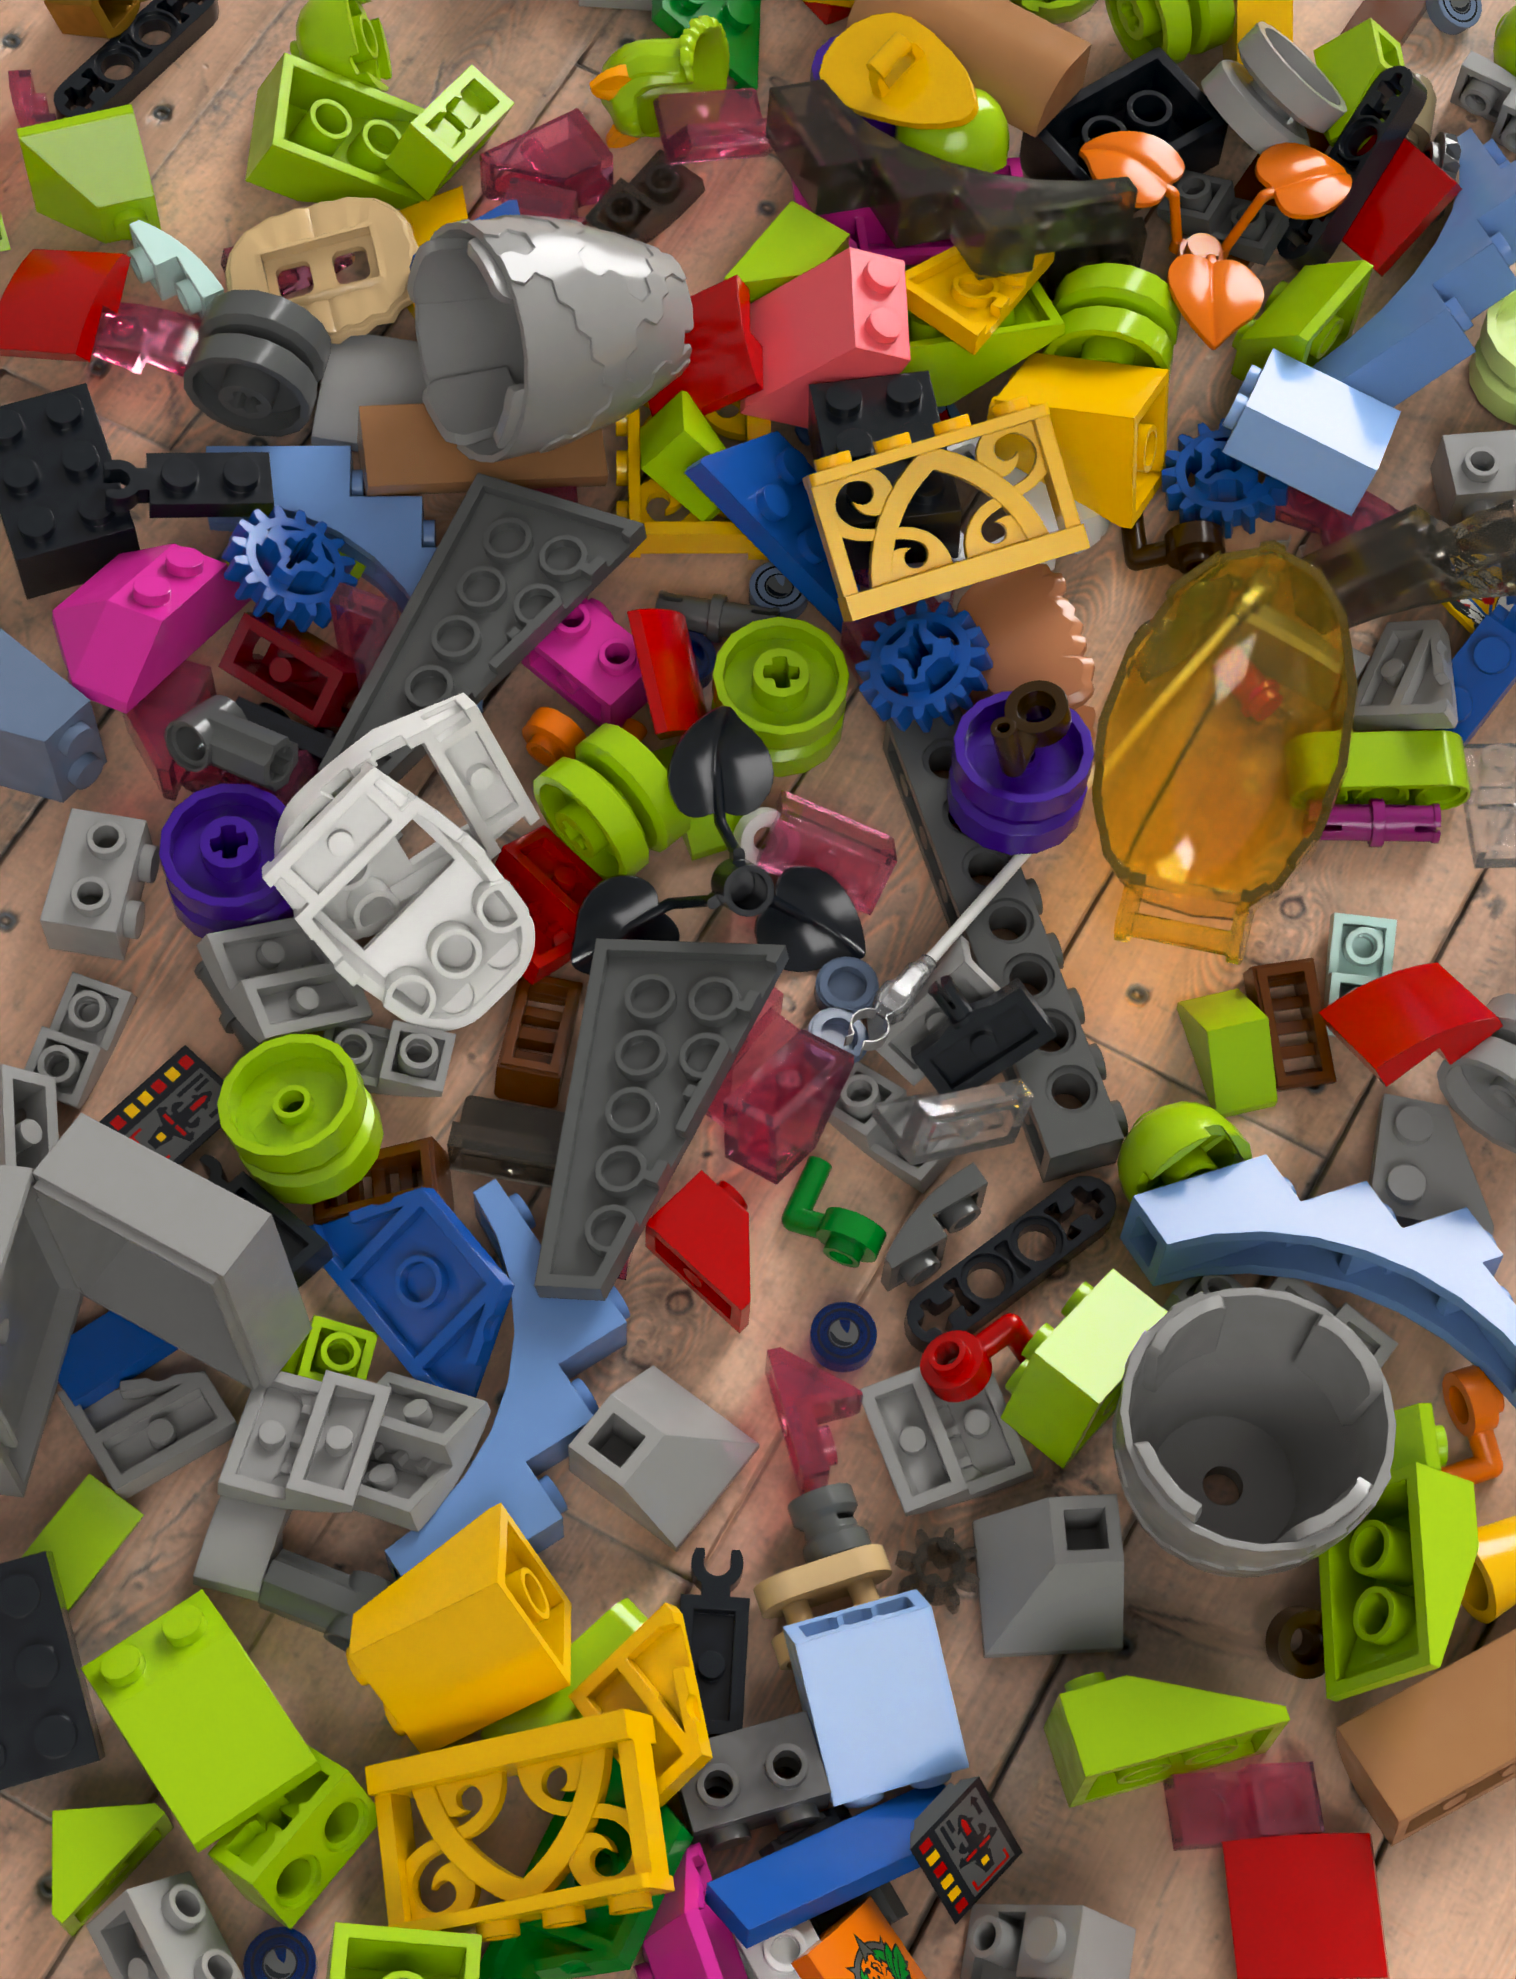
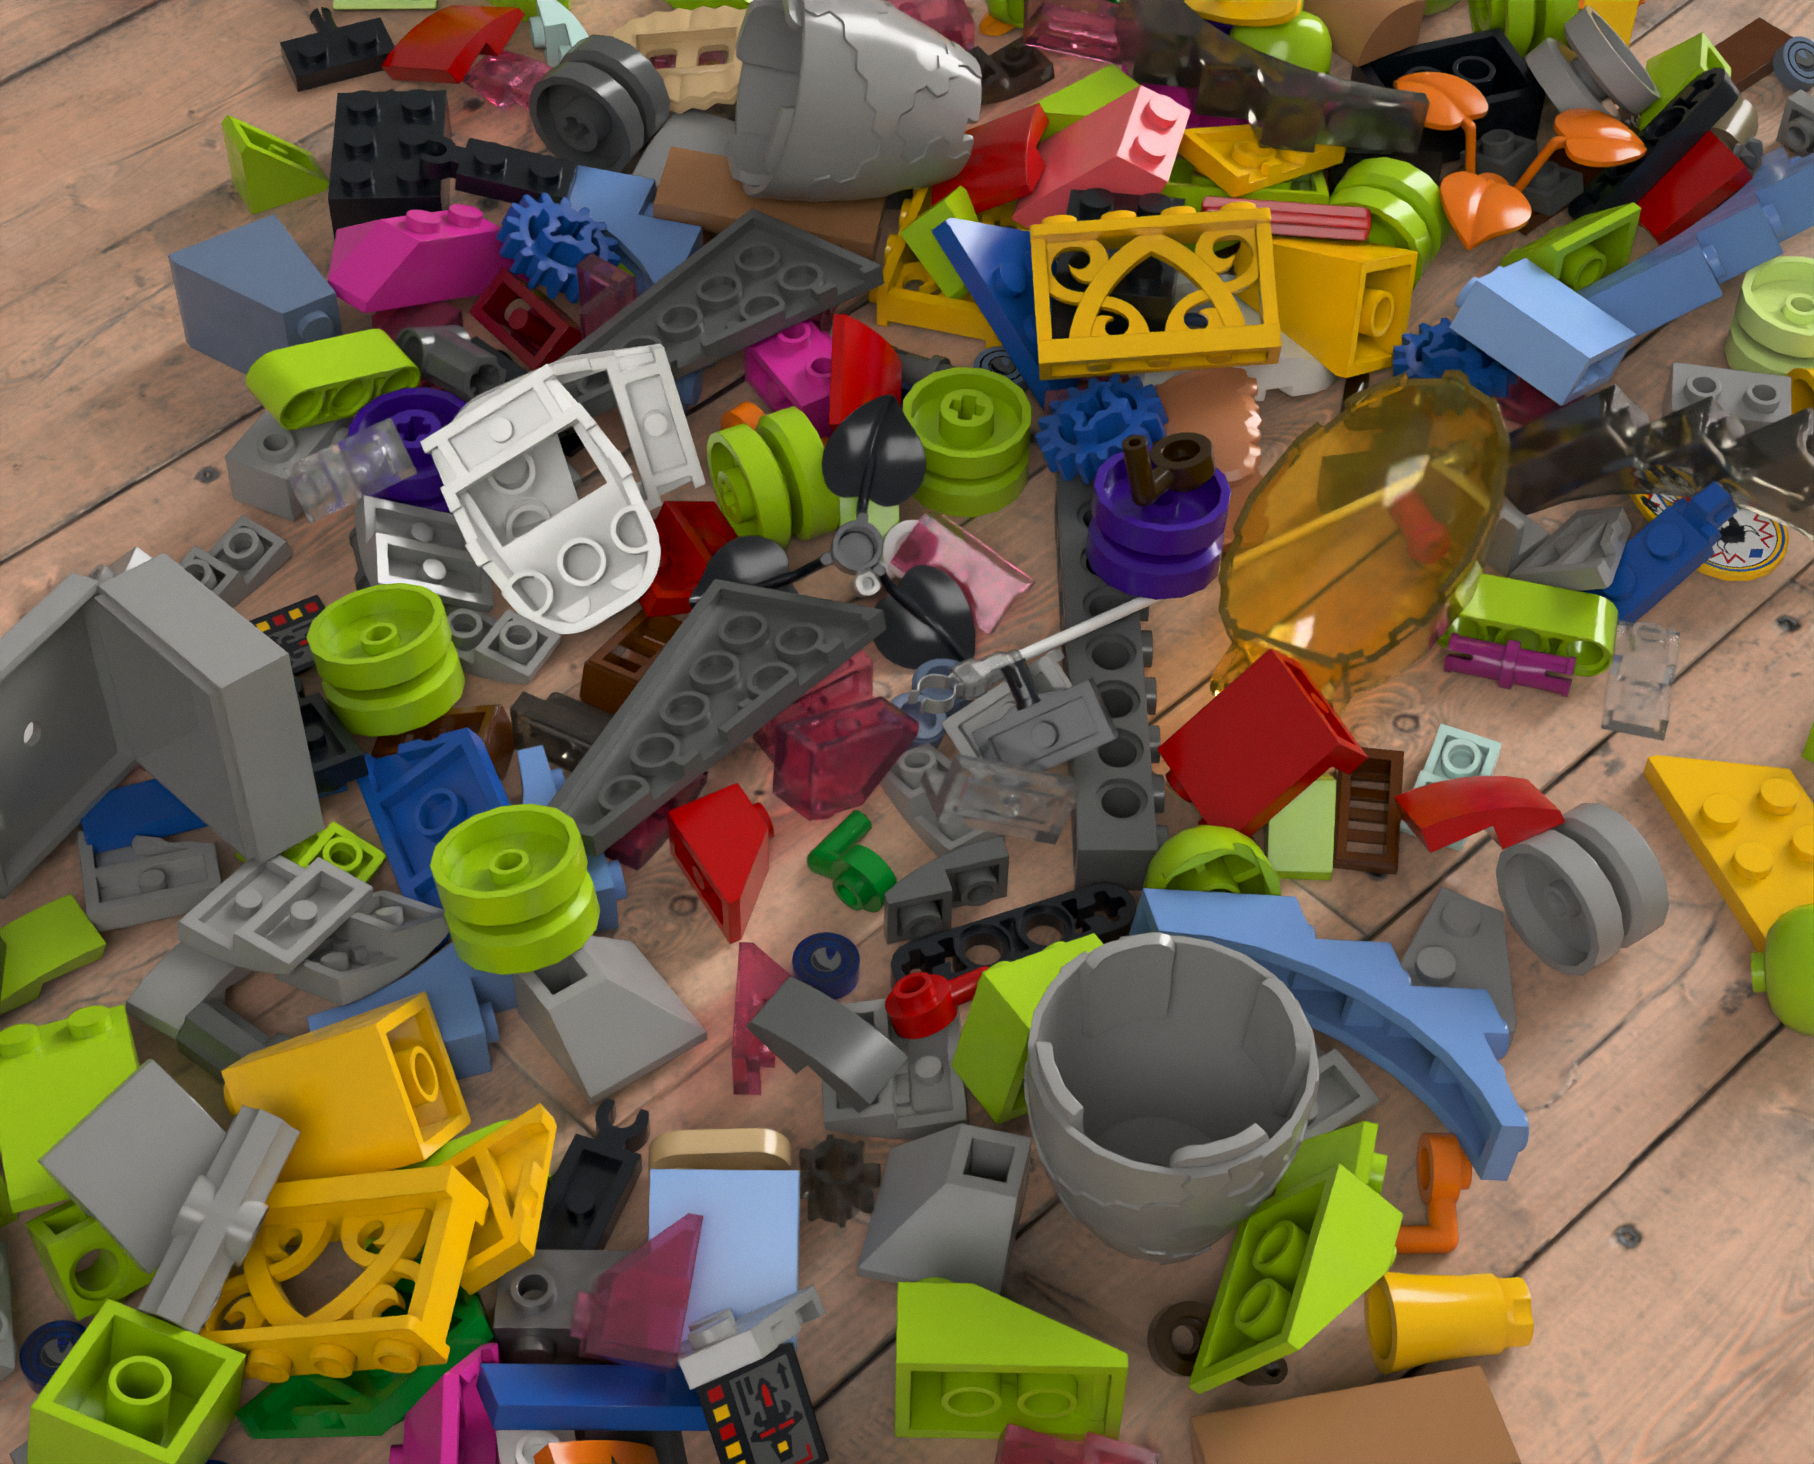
camera: 20 degrees right, 15 degrees down
(125, 806) = (329, 377): none -> lime beam
(183, 910) = (350, 470): none -> clear slope
(317, 1773) = (137, 1161): none -> light grey slope
(409, 1813) = (220, 1220): none -> light grey piece
(552, 1372) = (515, 888): none -> lime wheel
(828, 1521) = (745, 1100): dark grey wheel -> none
(832, 1776) = (641, 1302): none -> clear pink slope
(892, 1438) = (832, 1040): none -> dark grey slope
(935, 1789) = (726, 1344): none -> light grey wing
(1030, 364) = (1307, 219): none -> axle
(1188, 1006) = (1258, 746): none -> red panel

